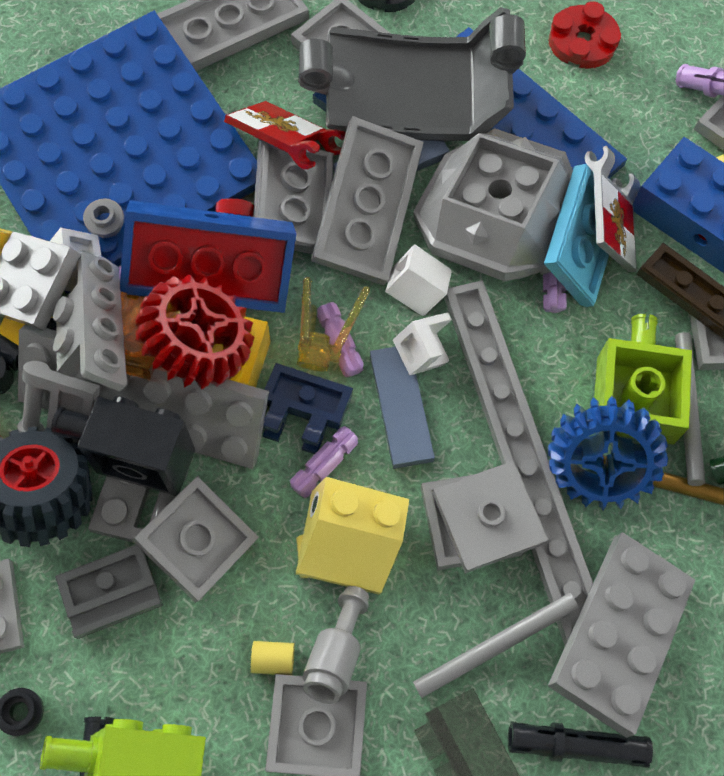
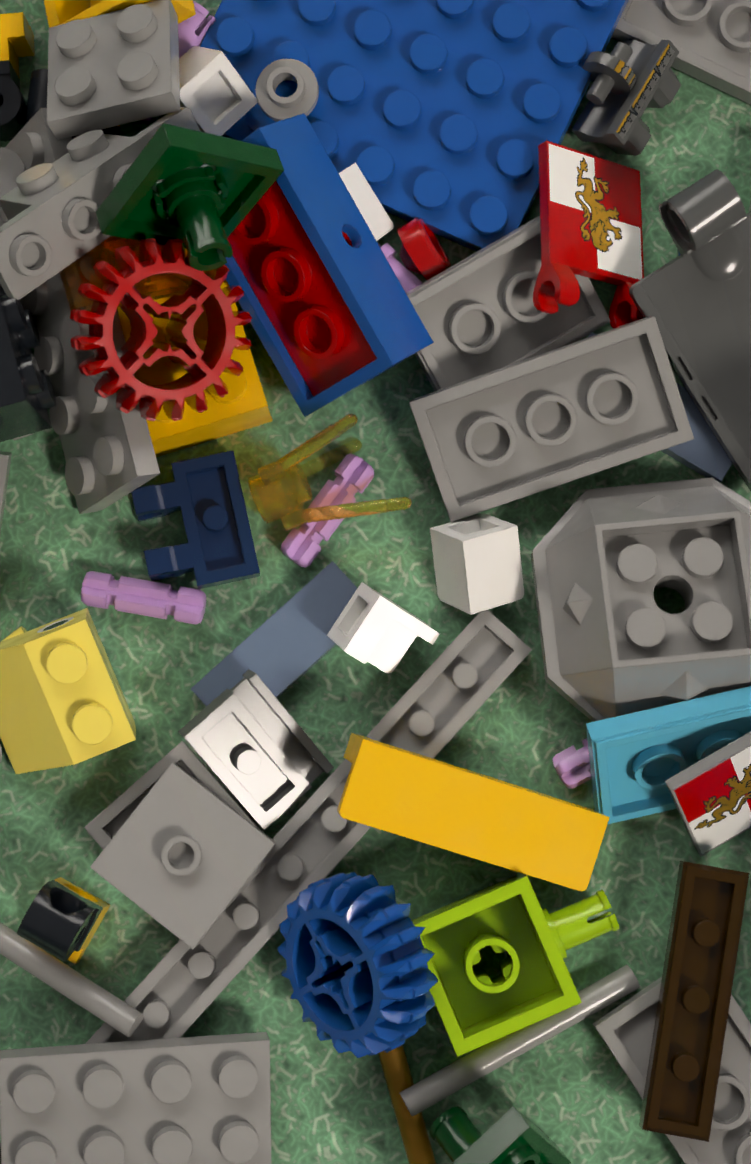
camera: 65 degrees right, 15 degrees up
(134, 262) = (192, 200): none -> dark green plate
(224, 78) = (622, 88): none -> dark grey hips
(450, 445) = (256, 749): none -> plate
(488, 608) = (63, 919): none -> black leg
(553, 350) = (470, 813): none -> yellow panel

